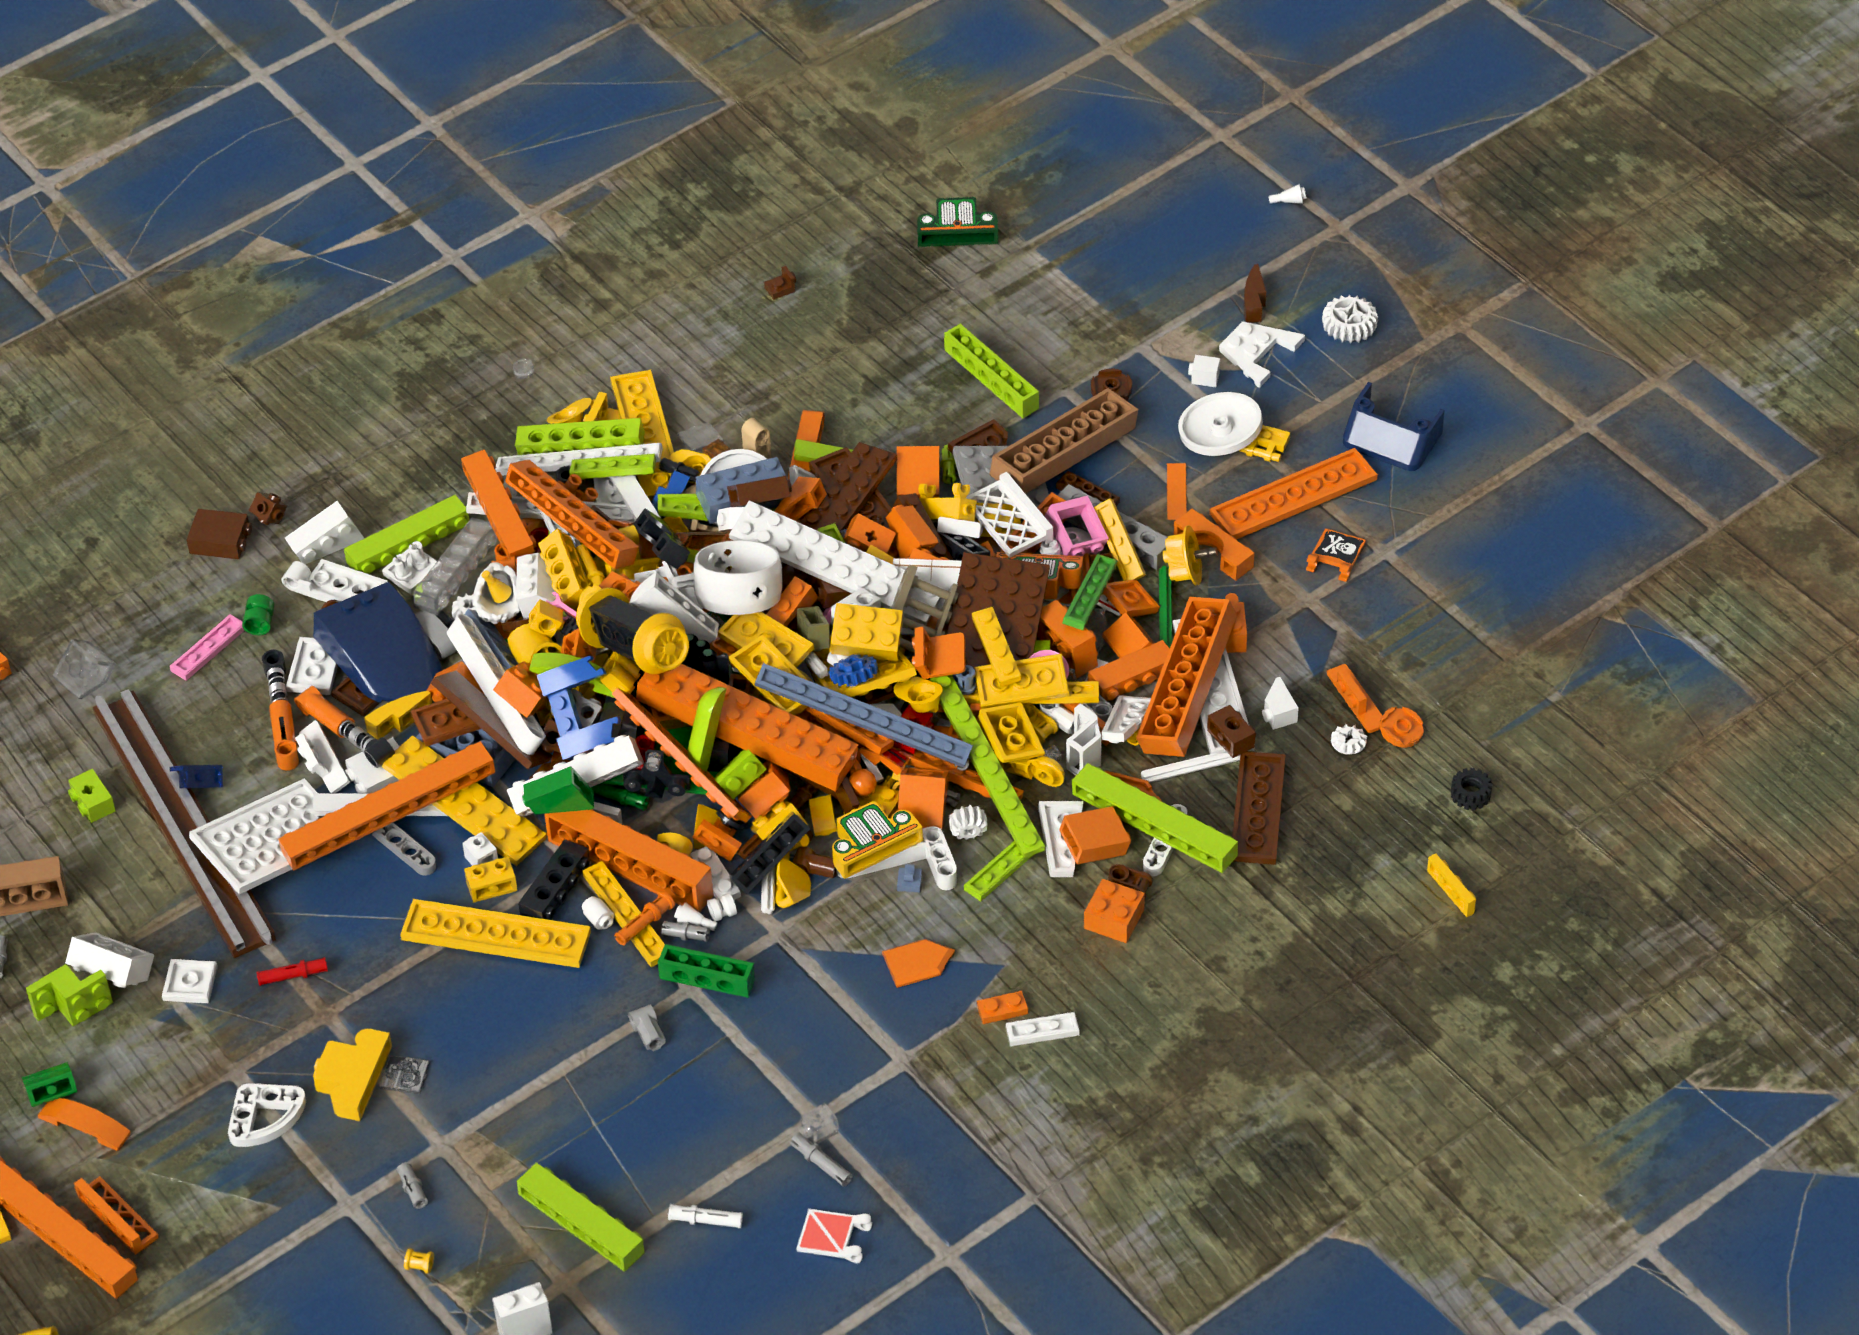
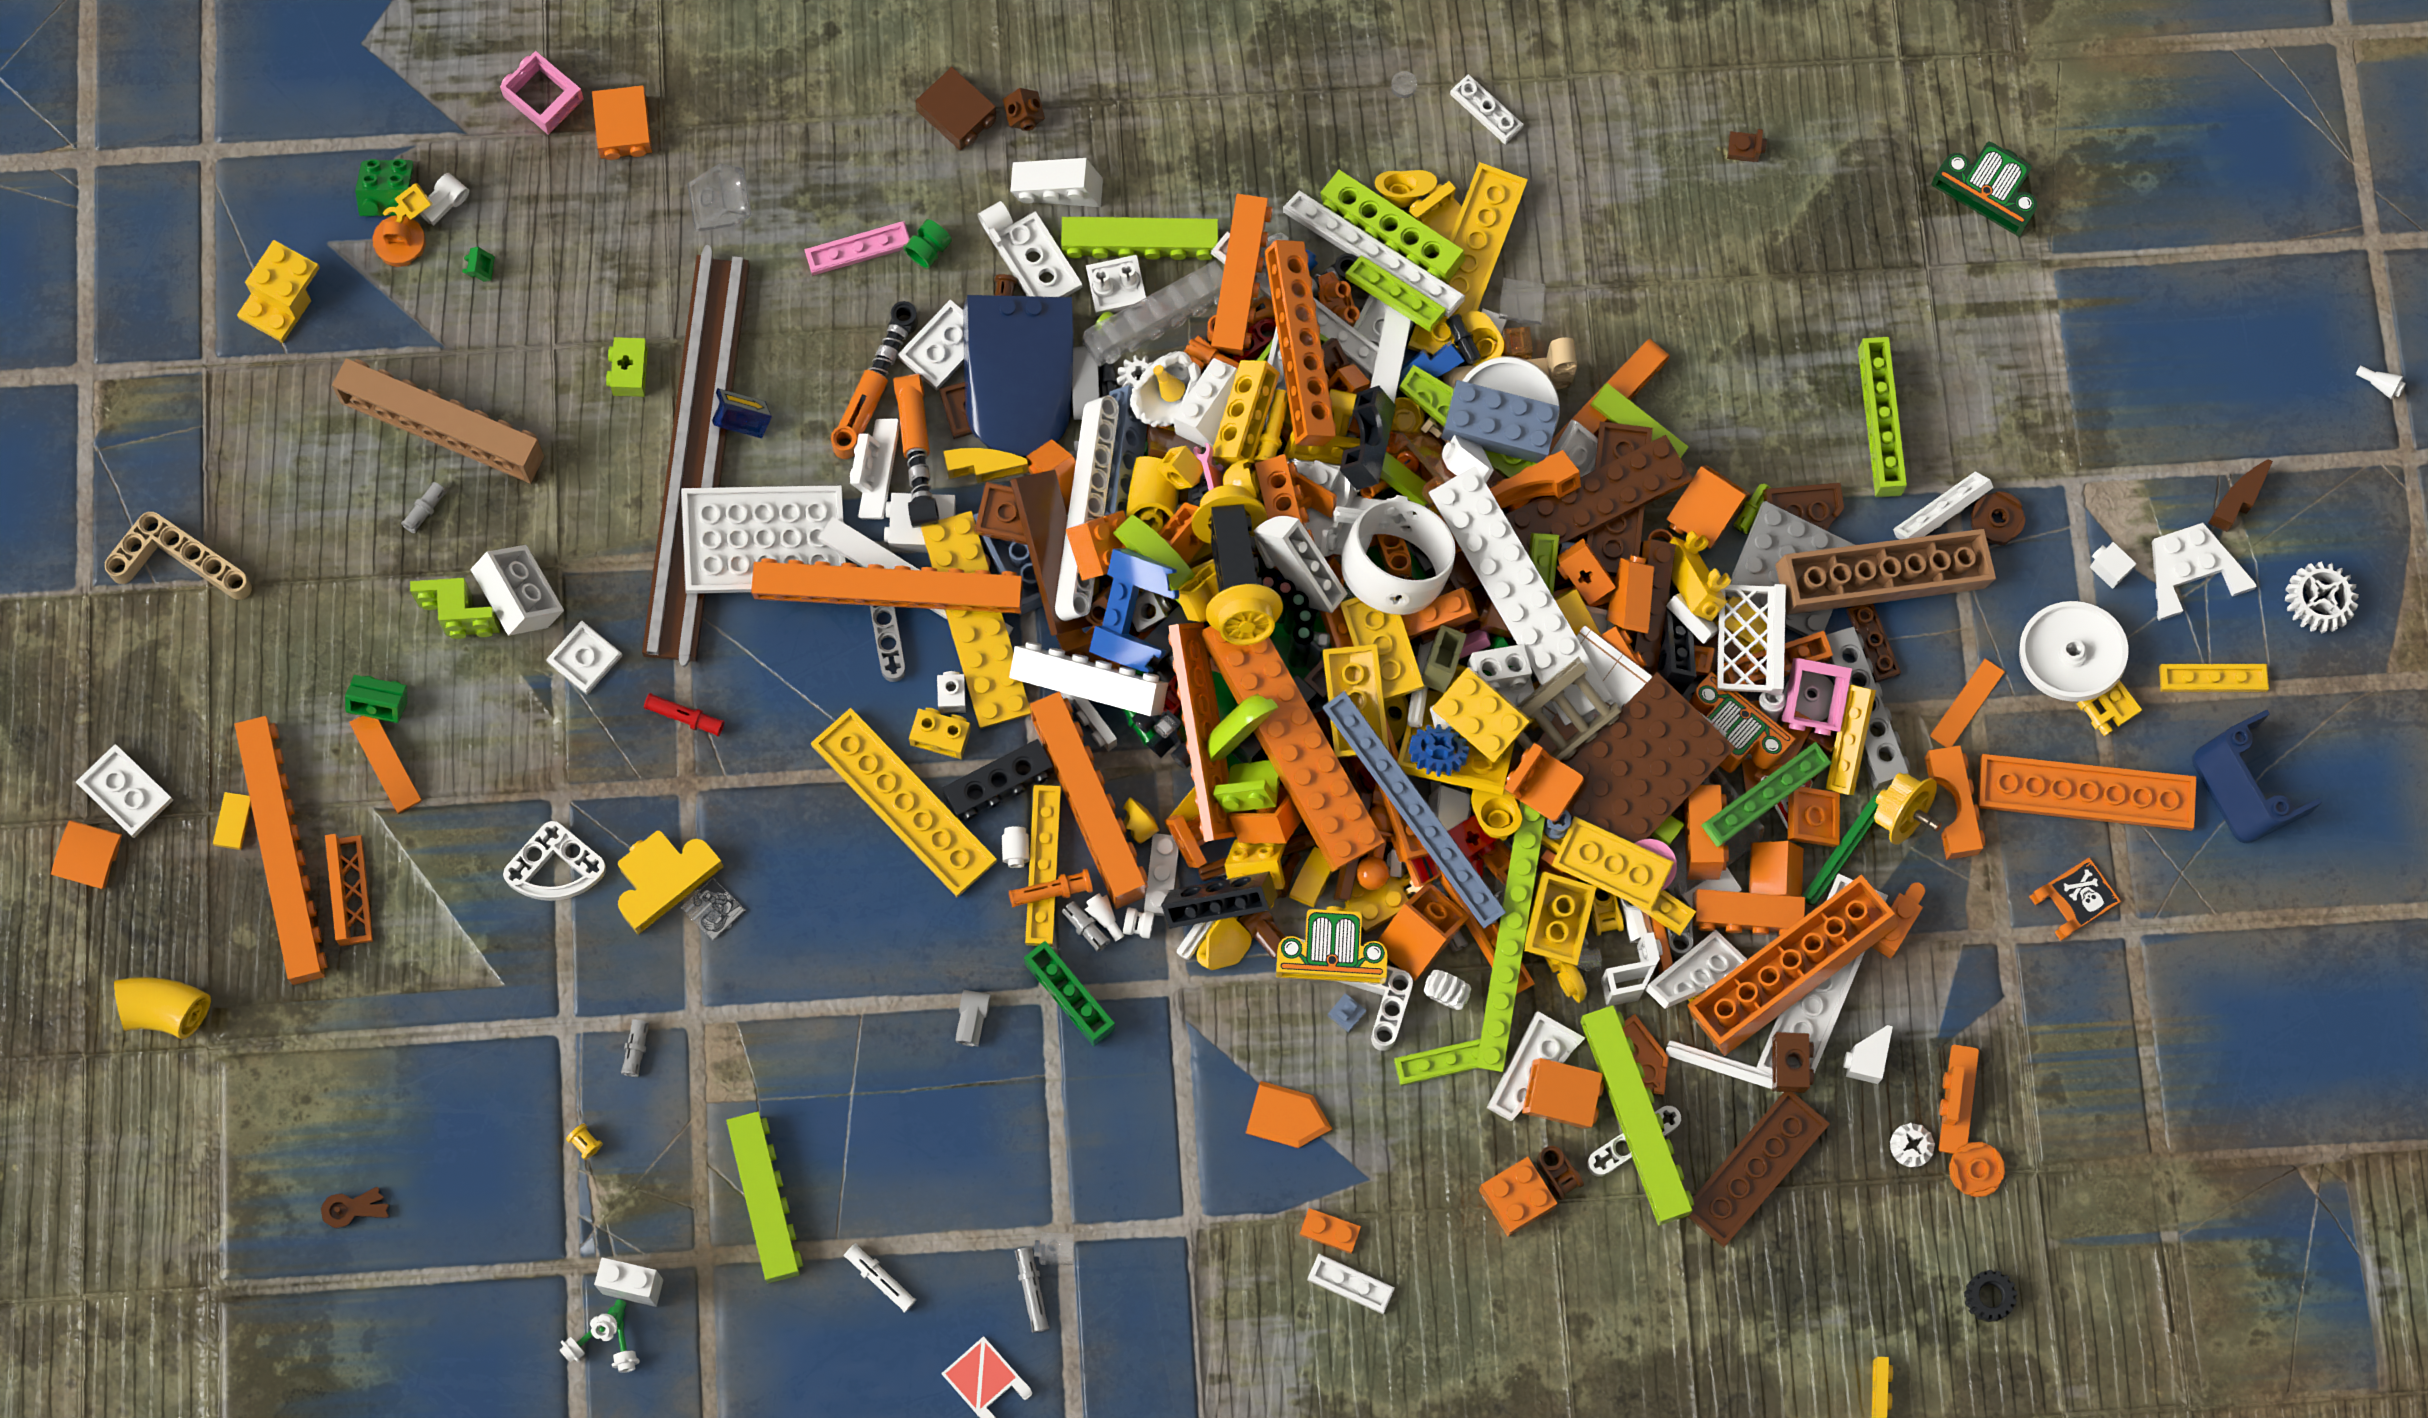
camera: 30 degrees right, 25 degrees up
(558, 793) = (1051, 697): green slope -> none
(590, 353) = (1497, 119): none -> white tile
(759, 491) = (1501, 451): reddish brown brick -> none
(996, 646) = (1611, 810): yellow plate -> none
(1075, 390) = (1944, 507): none -> white plate
(1320, 396) = (2213, 678): none -> yellow tile

